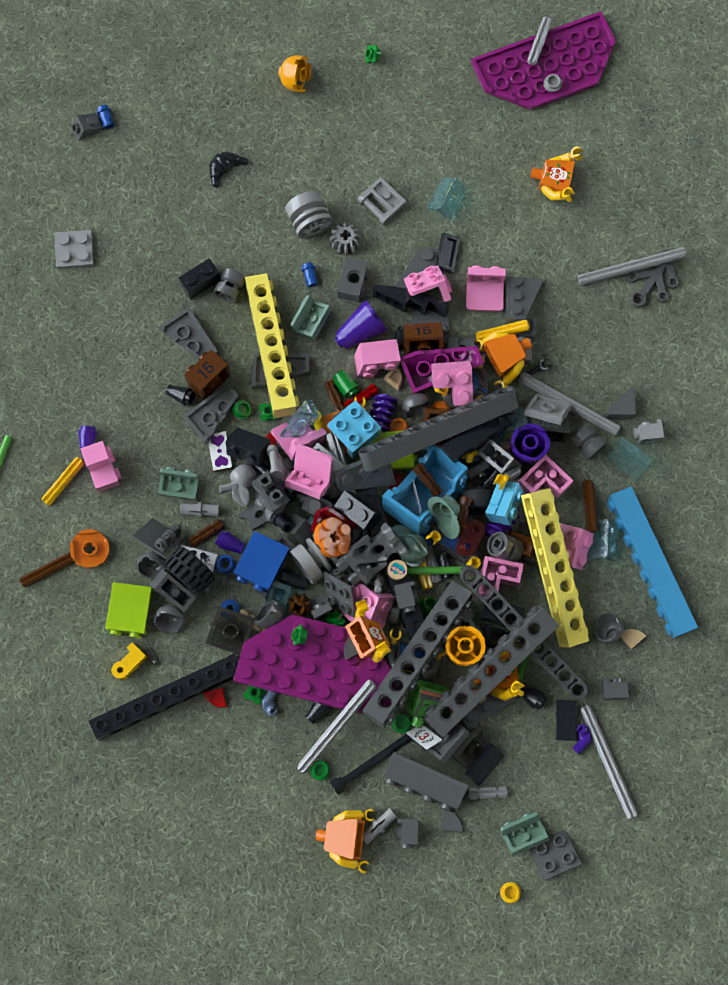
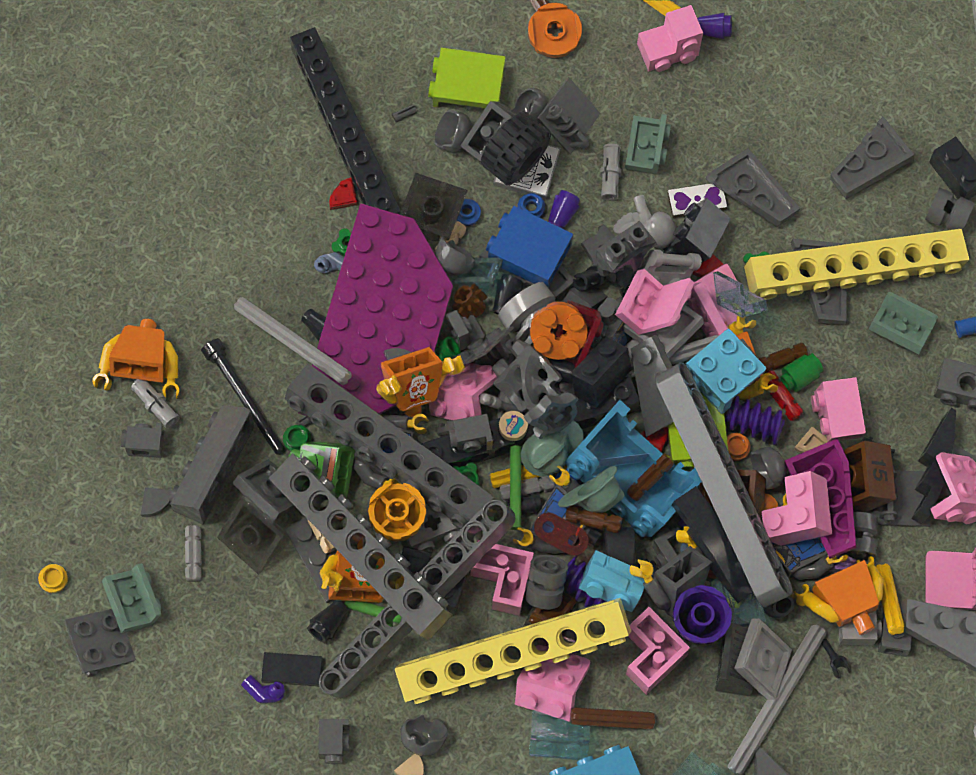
camera: 90 degrees right, 5 degrees down
(129, 663) = (394, 83): yellow leg -> none
(181, 394) = (780, 149): black cone -> none
(206, 532) = (577, 182): reddish brown axle -> none
(207, 374) = (808, 176): reddish brown brick -> none
(242, 409) = (760, 229): green plate -> none
(299, 635) = (419, 287): green plate -> none
(320, 770) = (236, 328): green plate -> none
(360, 327) = (892, 394): dark purple cone -> none
(424, 737) = (271, 461): white sticker -> none
(484, 764) = (232, 549): black tile -> none
(588, 442) = (716, 719): dark grey wheel -> none
(609, 762) = (228, 727): light grey axle -> none

